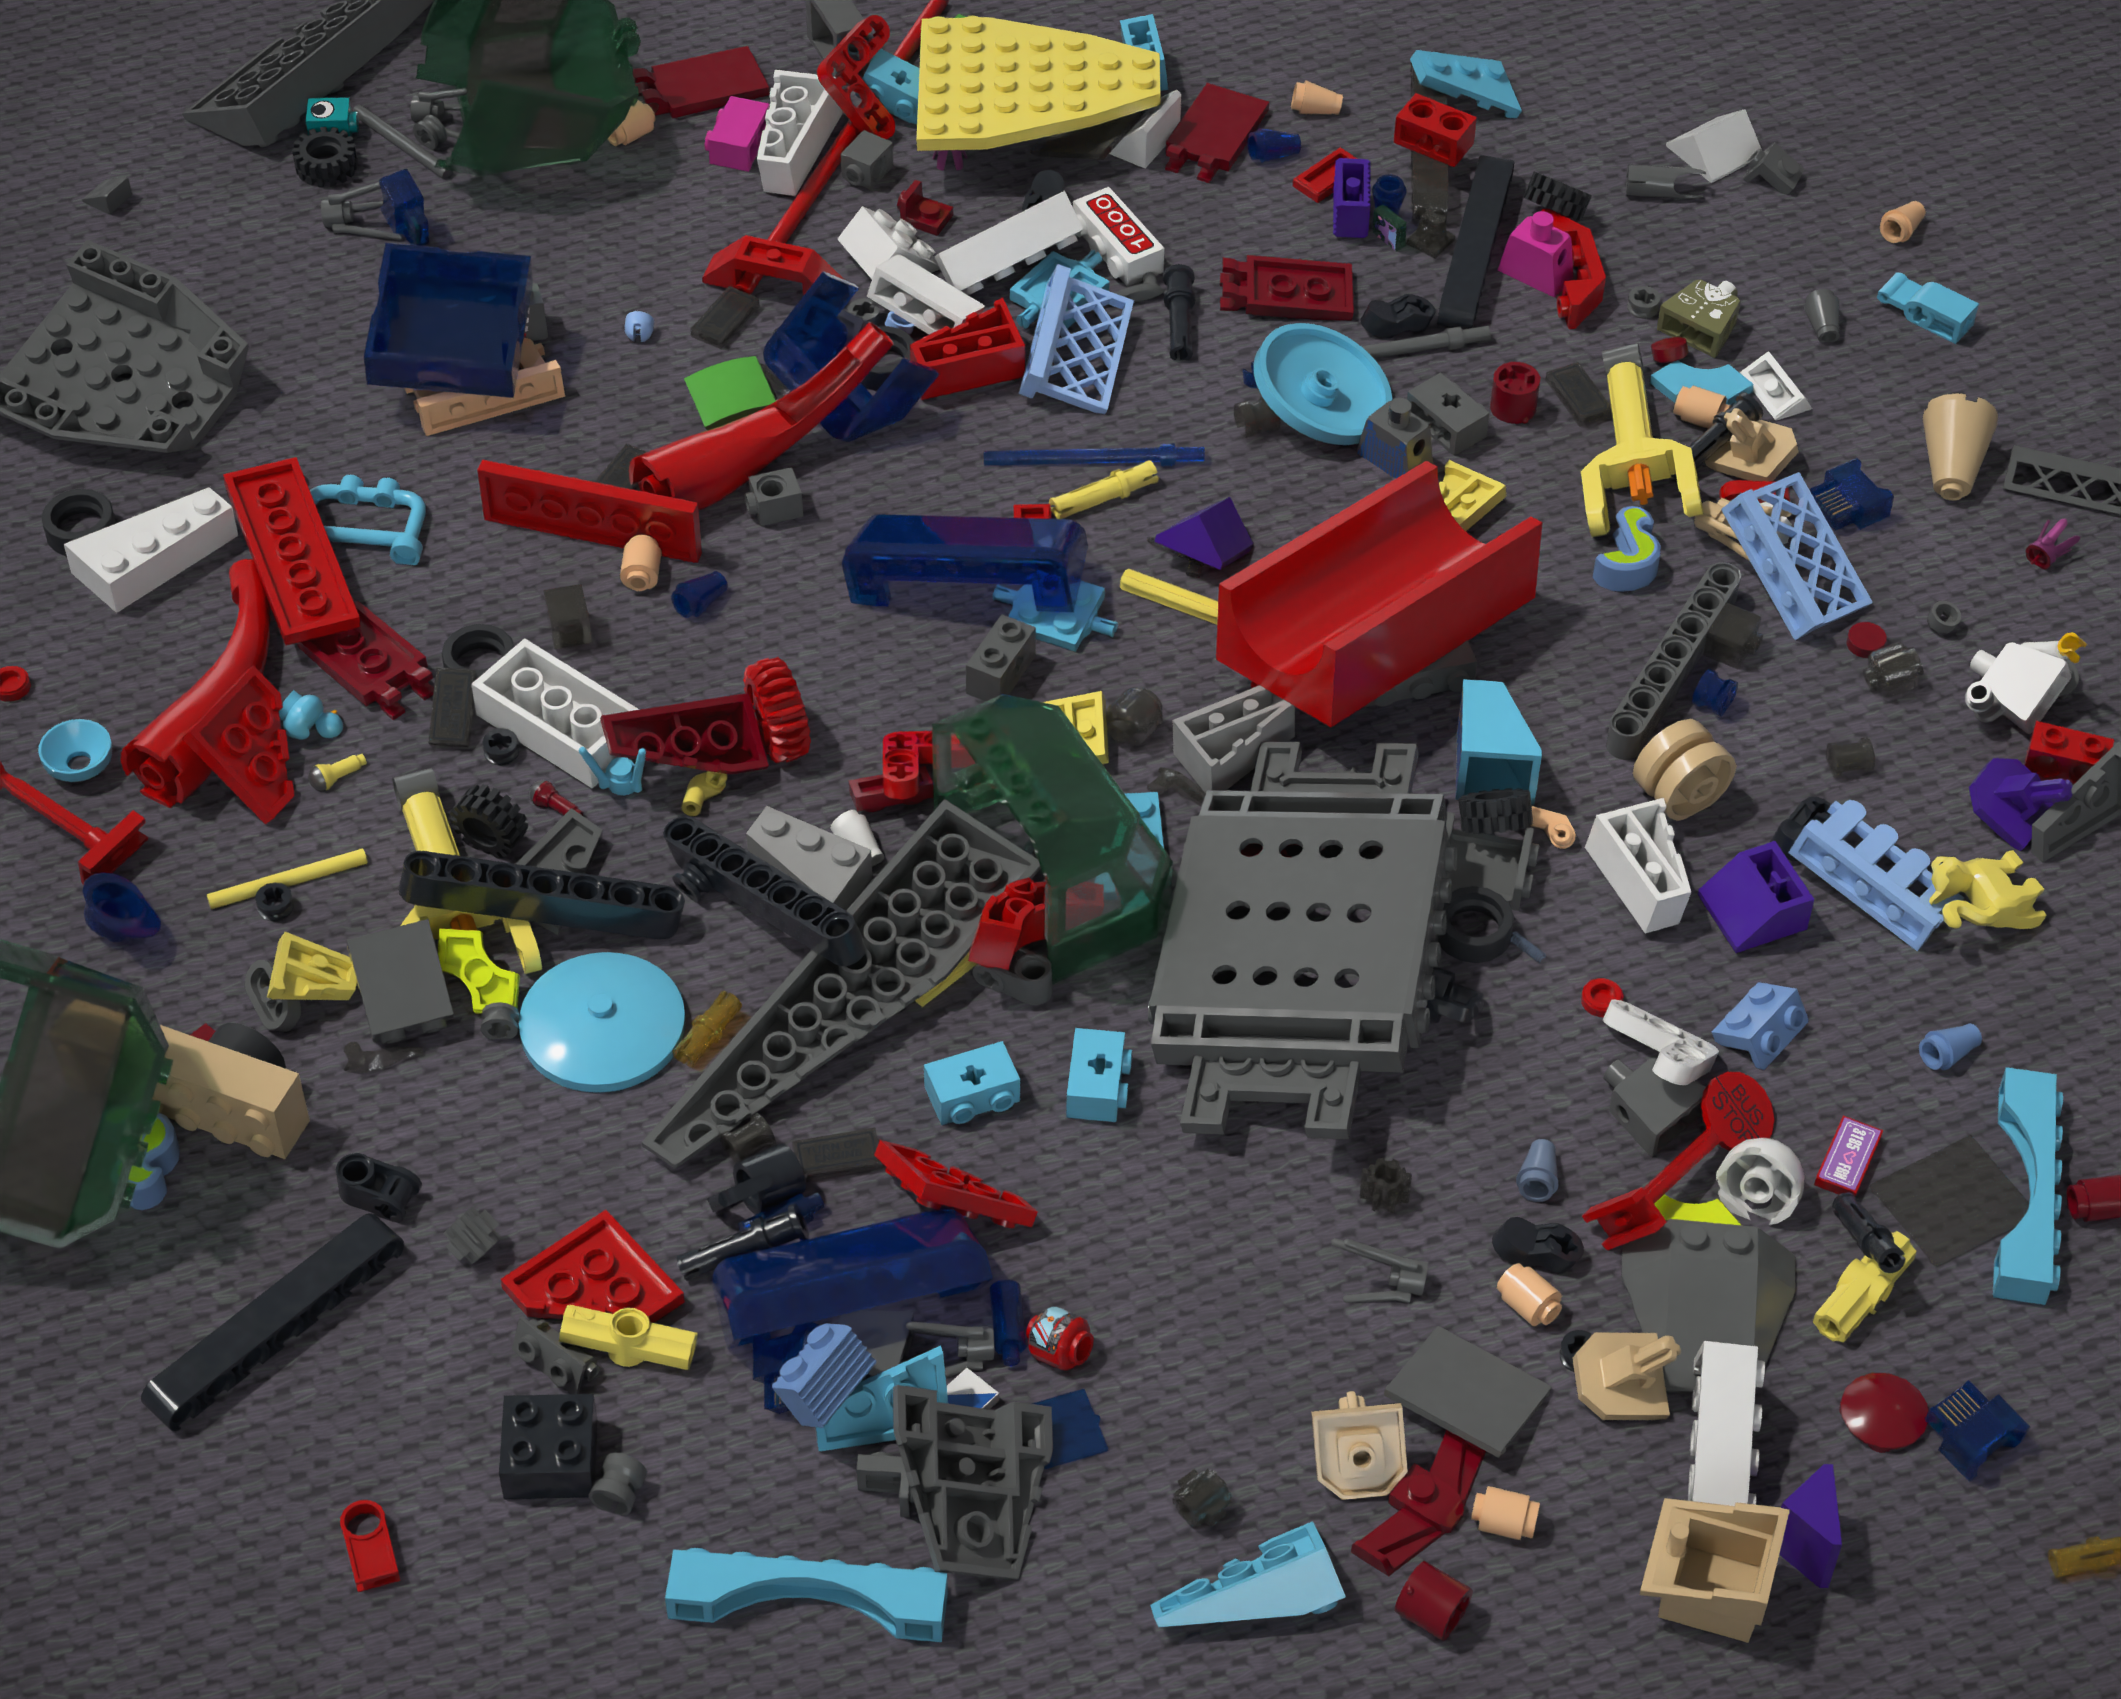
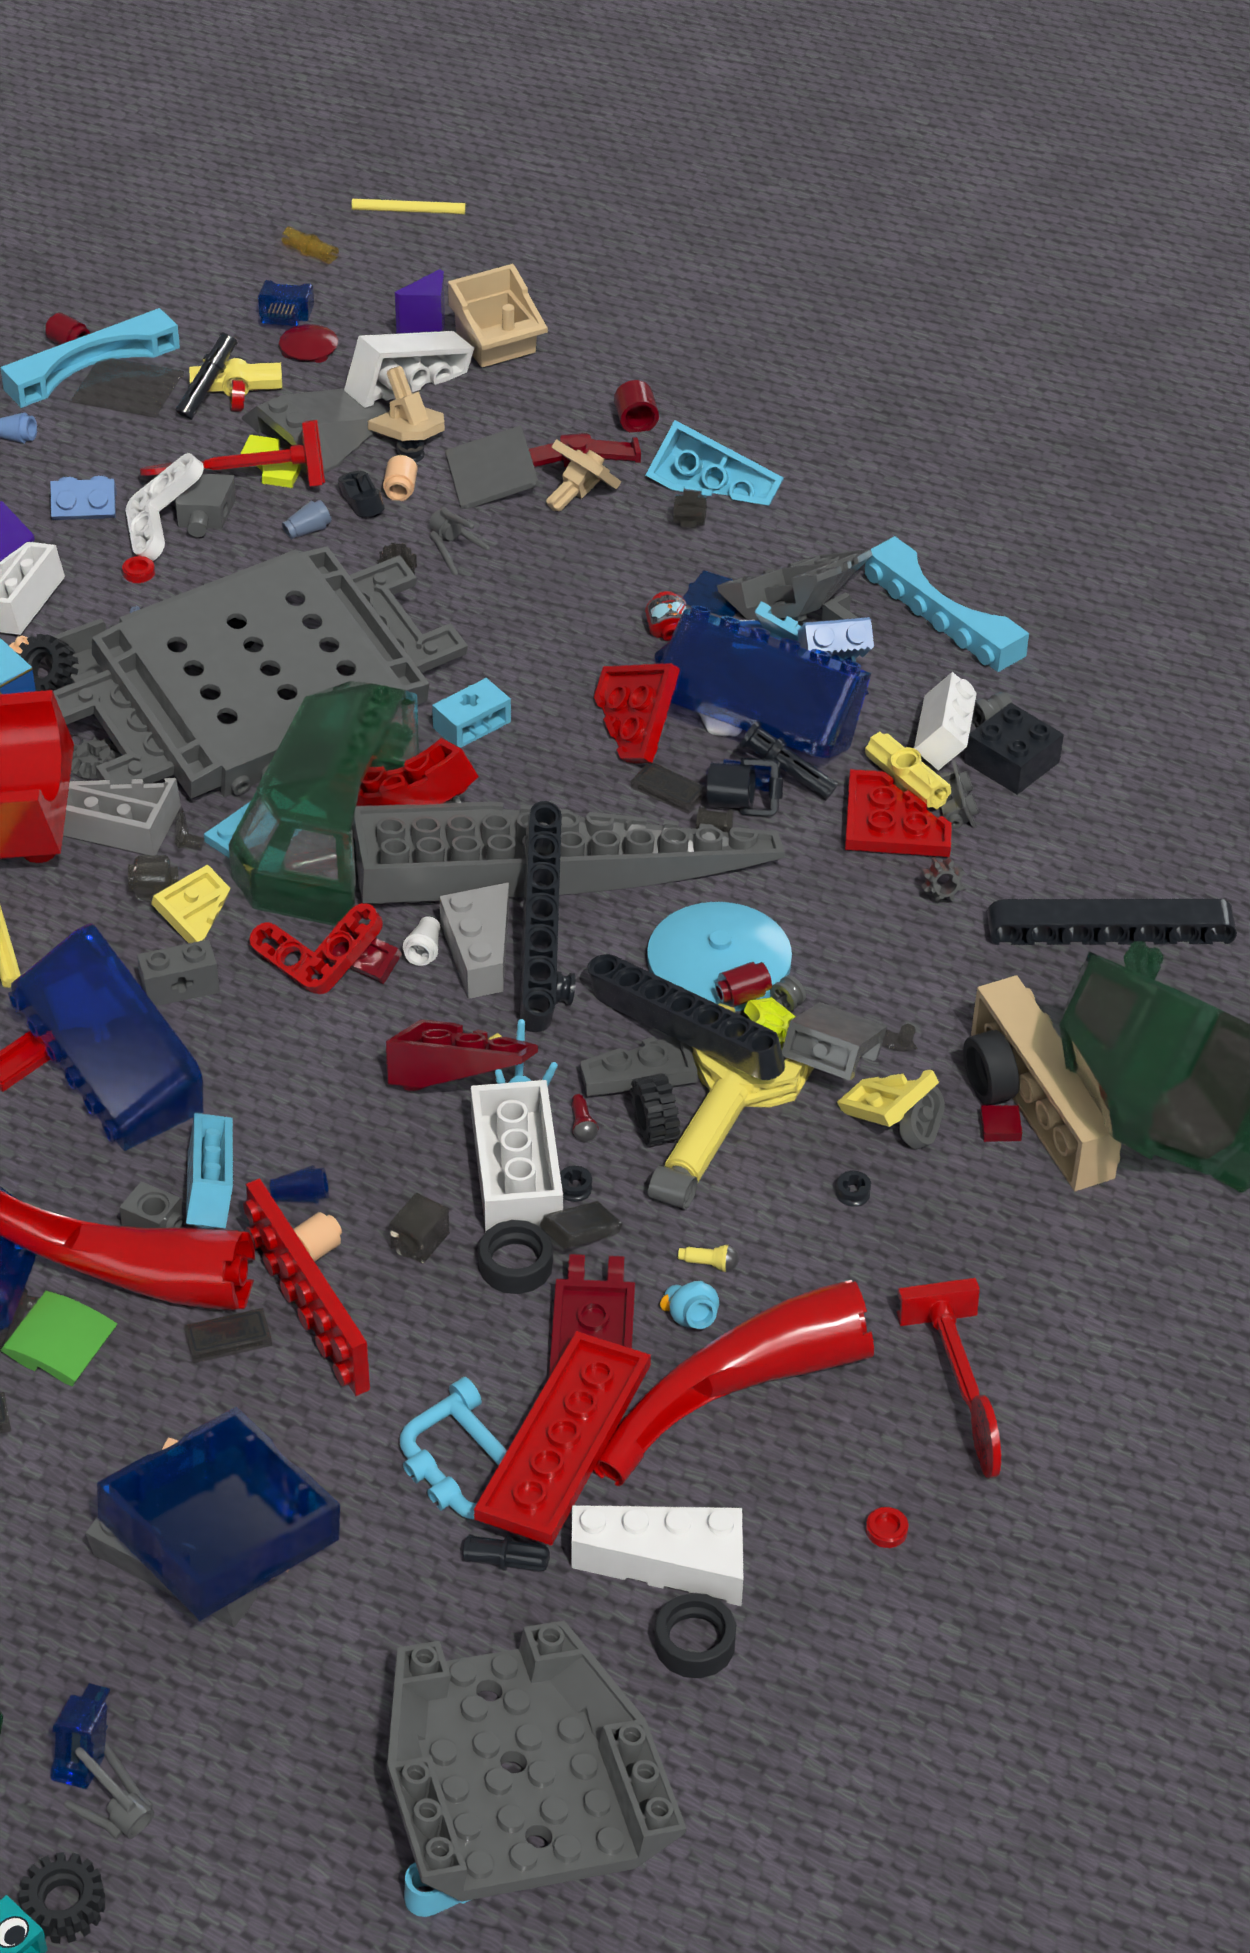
camera: 135 degrees left, 5 degrees down
(75, 739) = (896, 1389): medium azure piece -> none
(117, 908) = (979, 1238): clear blue piece -> none
(246, 744) = (775, 1278): red plate -> none
(288, 878) = (826, 1203): light yellow bar -> none
(369, 1554) = (1166, 777): red piece -> none
(382, 1187) = (973, 952): black piece -> none
(532, 976) = (743, 983): none -> dark red brick
(638, 1405) = (945, 720): none -> white brick
(639, 320) = (46, 1458): light blue hinge -> none
(707, 1028) = (661, 900): clear yellow pin -> none
(752, 516) = (209, 1171): none -> medium azure brick
(778, 709) = (373, 1020): red gear -> none
(972, 1083) = (547, 757): medium azure brick -> none
(1505, 1513) = (549, 415): light nougat brick -> none
(1758, 1172) = (207, 433): white cylinder -> none
(1826, 1262) = (237, 395): none -> red tile
(1848, 1157) = (146, 429): tile -> none

